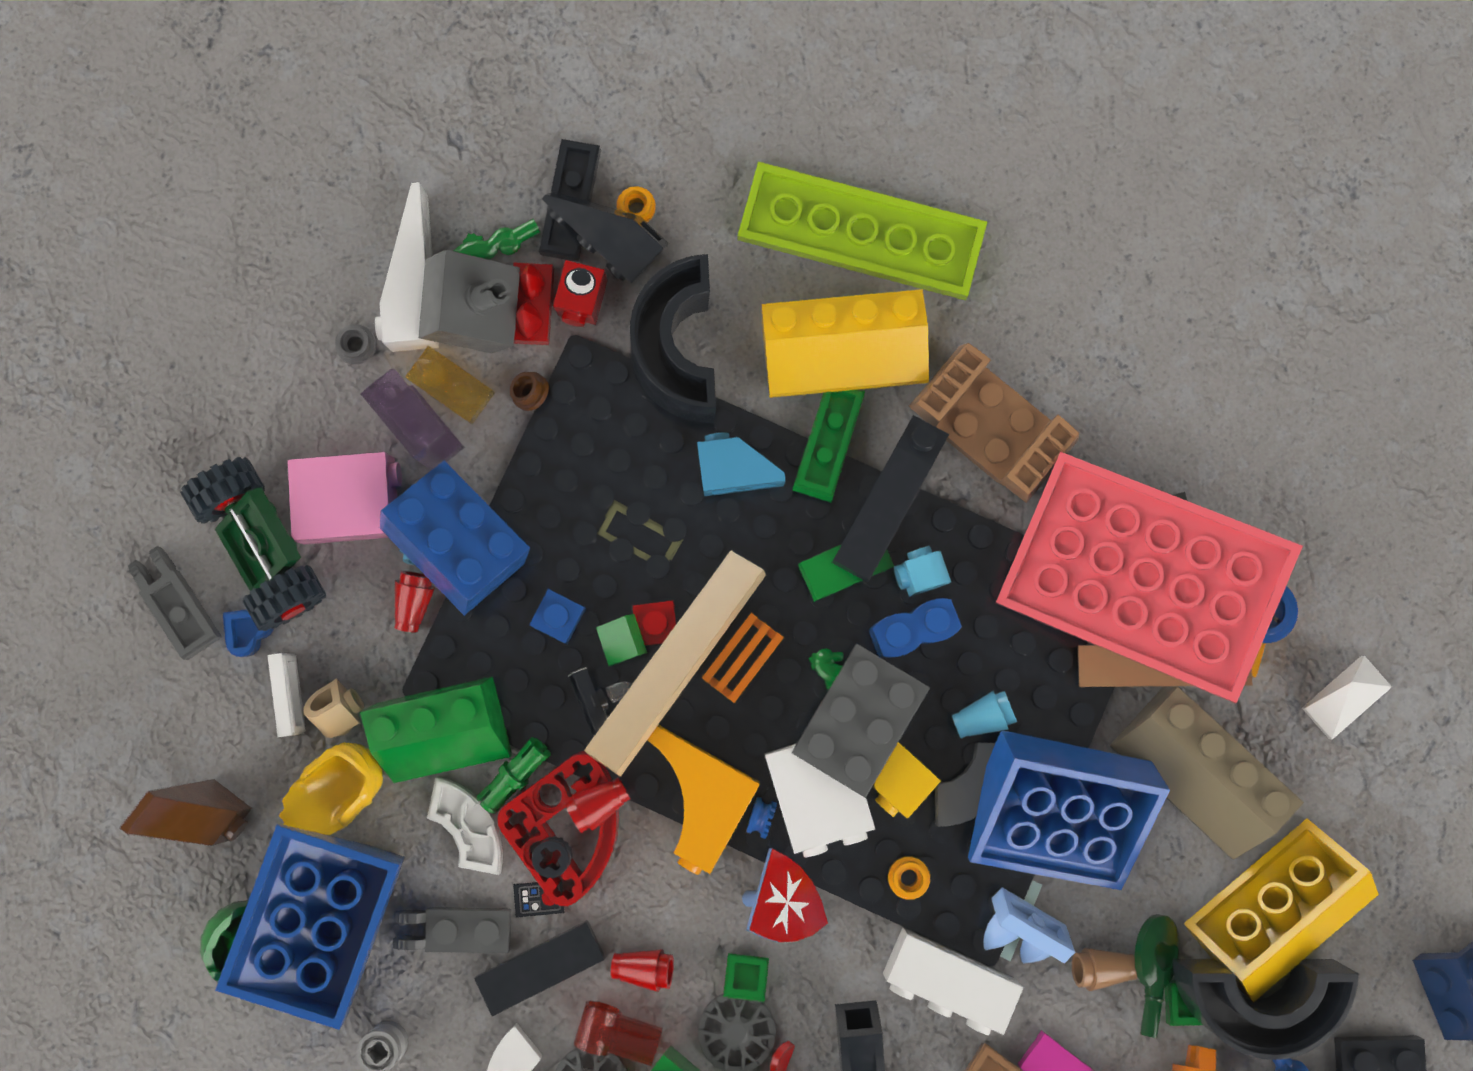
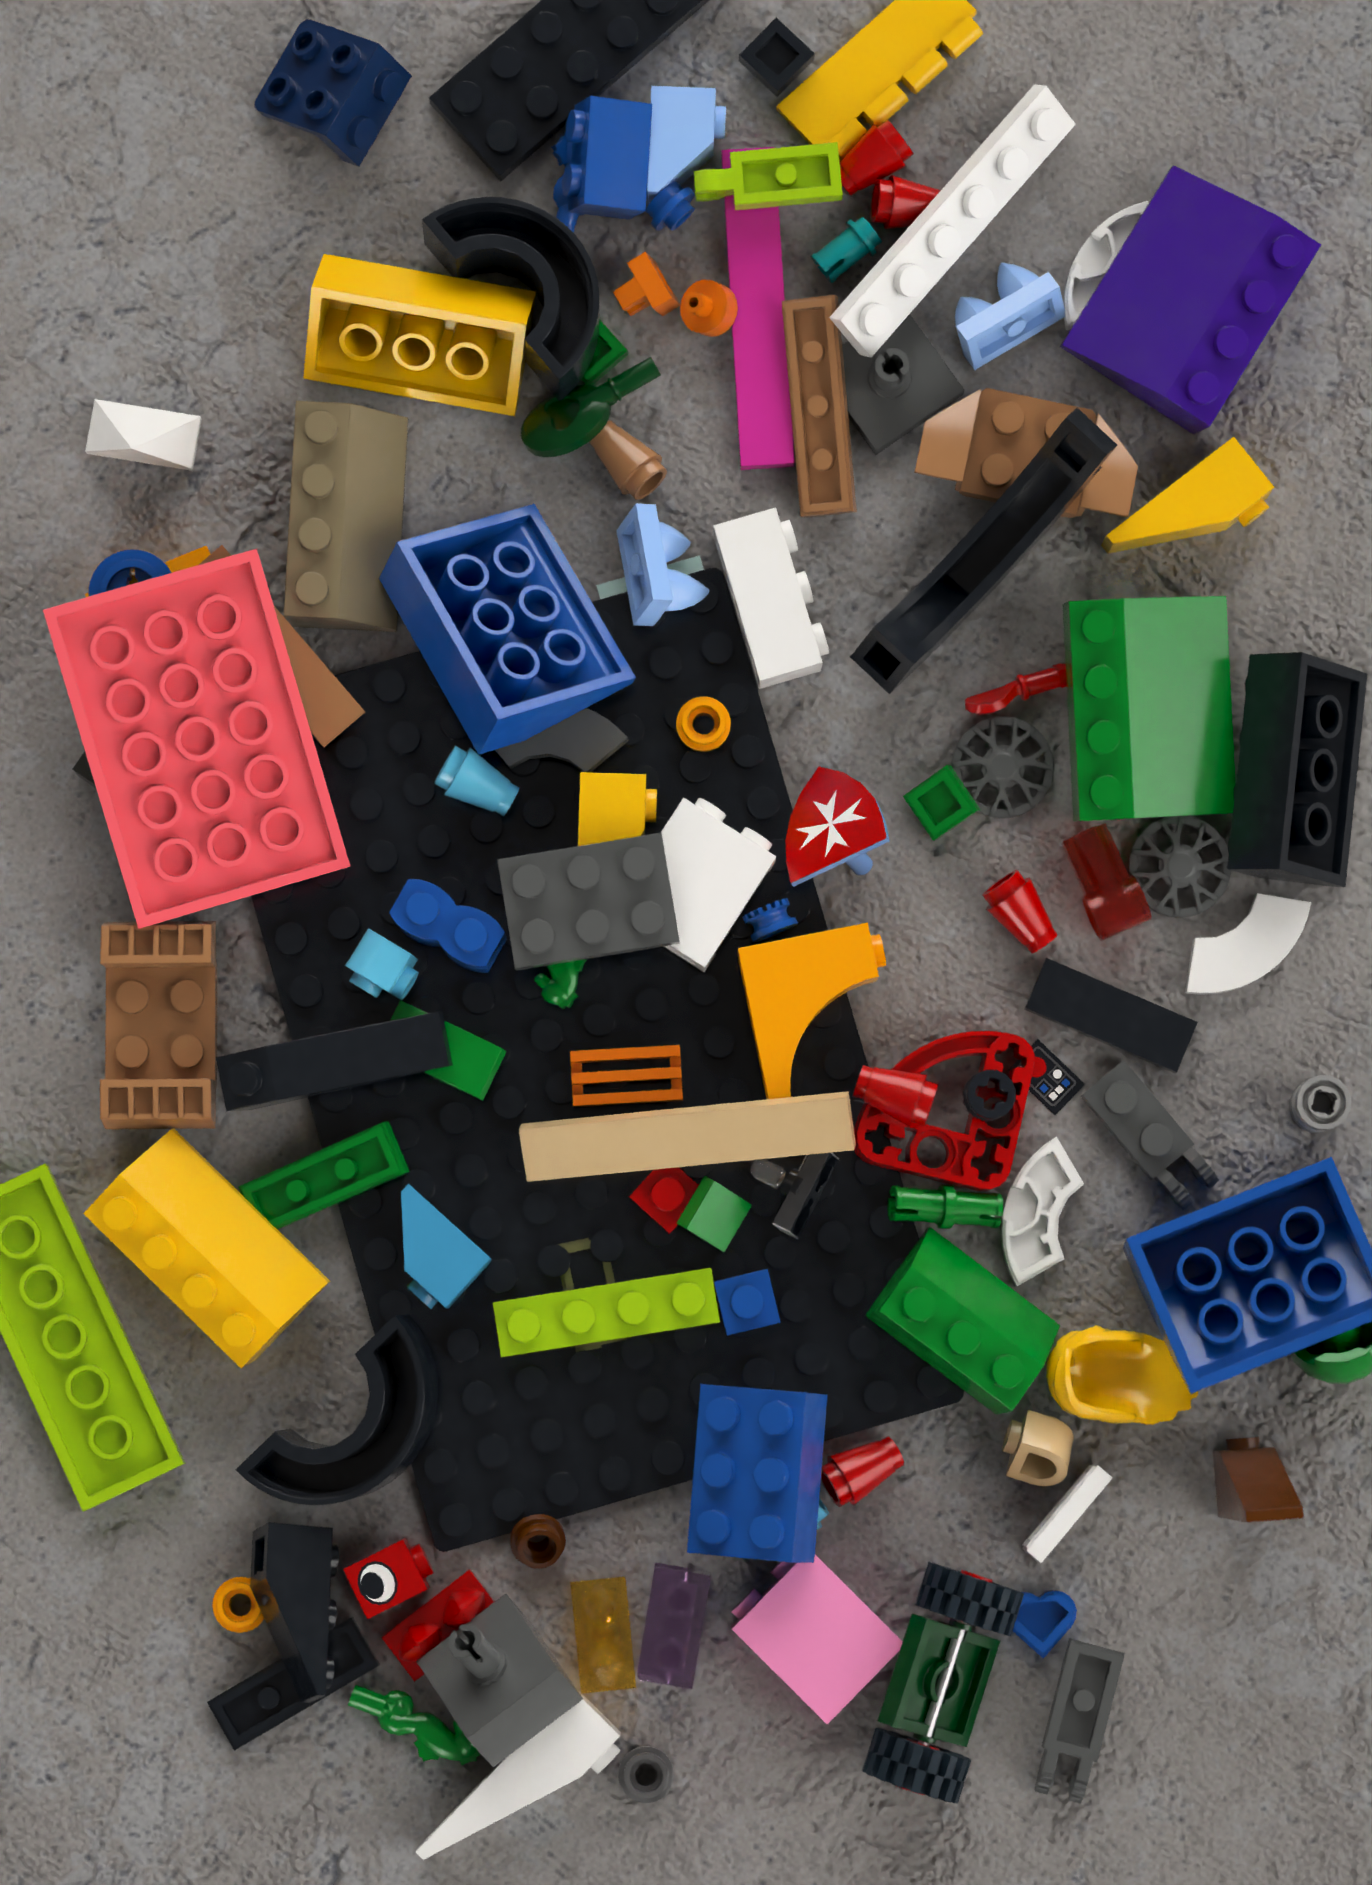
camera: 135 degrees left, 0 degrees up
(620, 533) = (606, 1312): none -> lime plate

